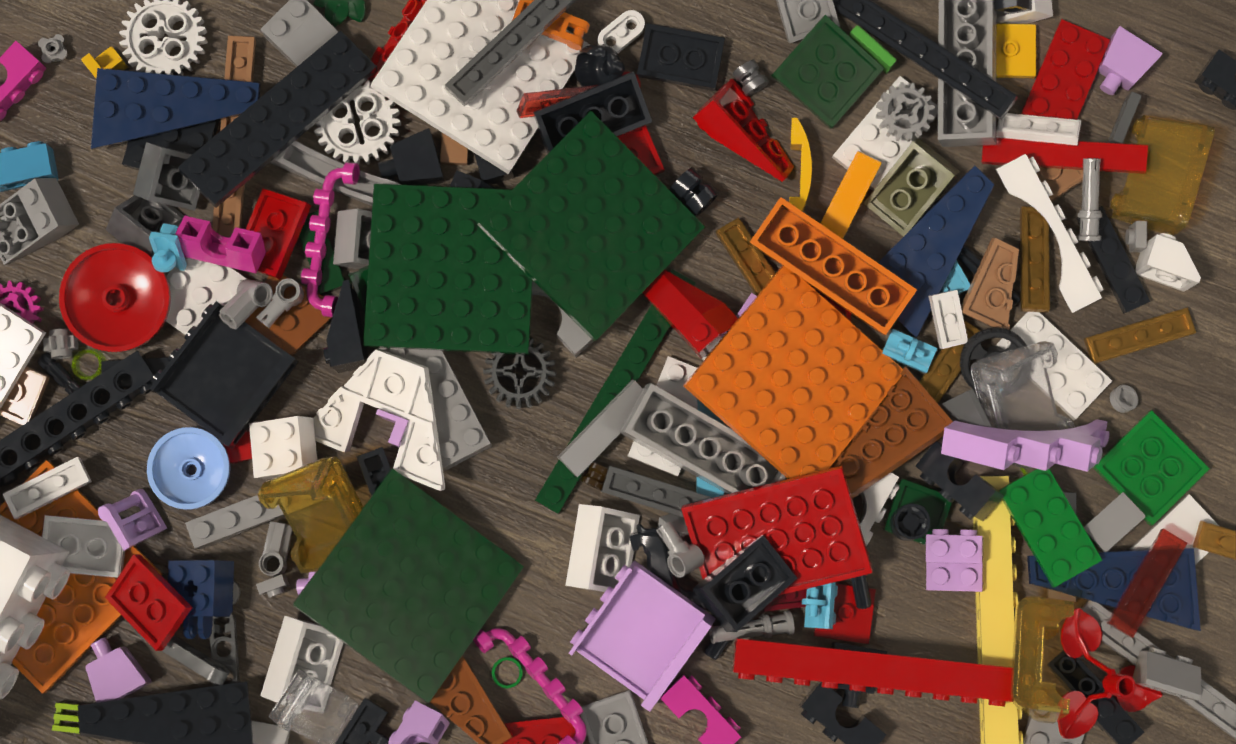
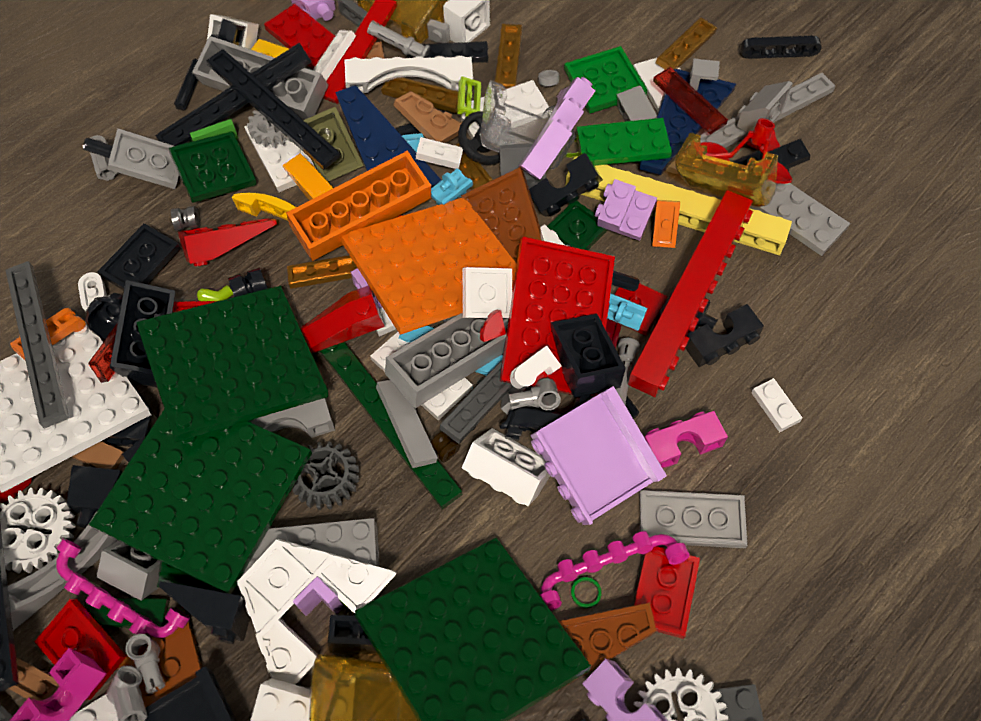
camera: 65 degrees left, 20 degrees down
(668, 158) = (210, 295): none -> lime arm
(703, 535) = (526, 373): none -> white leg
(732, 476) = (493, 326): none -> tile
(766, 455) = (486, 291): none -> white plate
(909, 522) = (583, 226): black wheel -> none
(918, 106) = (273, 109): none -> black tile
(958, 611) = (665, 223): none -> orange plate
(1022, 326) = (461, 96): none -> lime tile
(1189, 587) = (703, 70): none -> light grey panel

